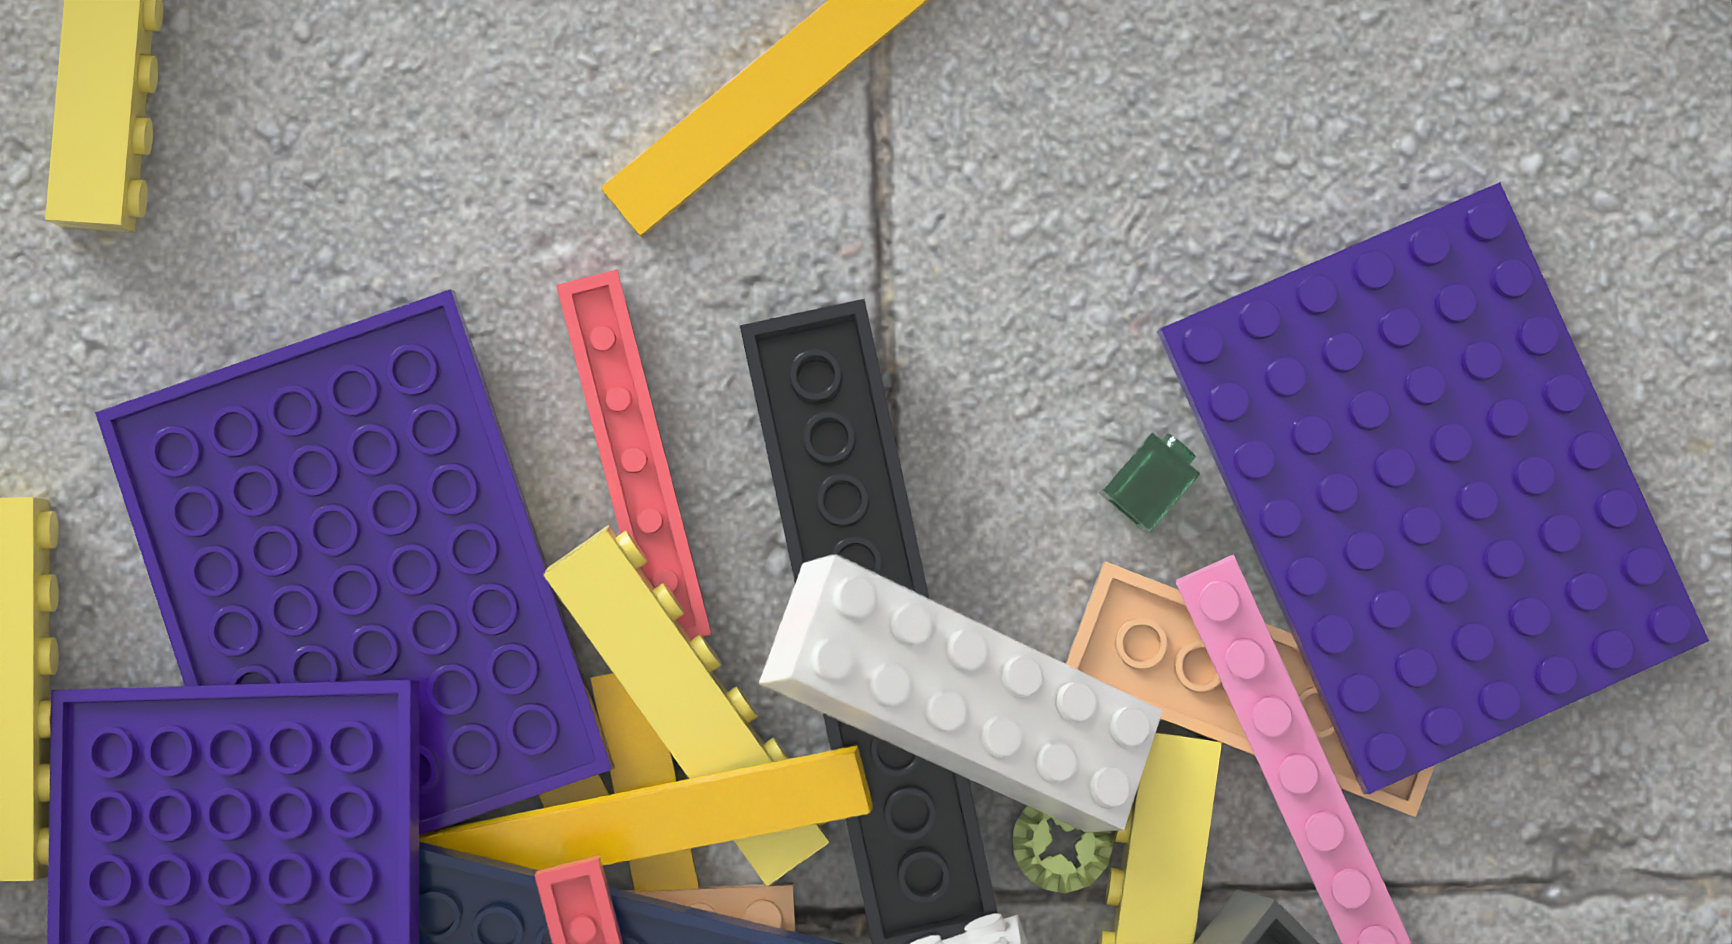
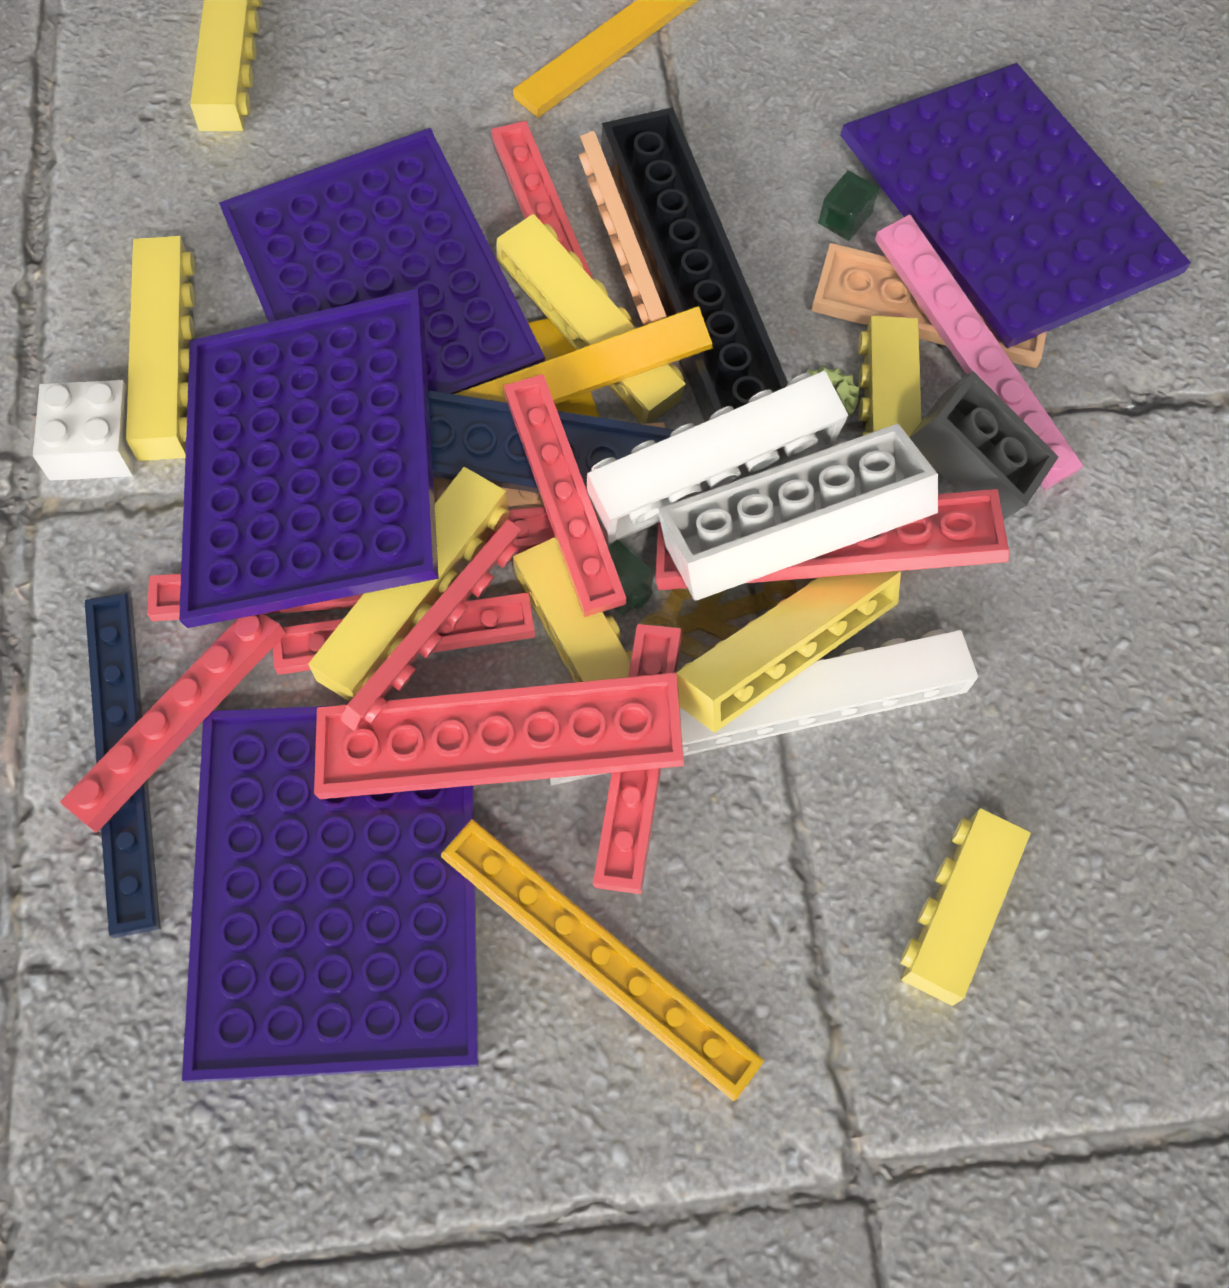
camera: 10 degrees left, 20 degrees down
(757, 545) = (620, 231): none -> light nougat plate
(961, 695) = (760, 278): white brick -> none

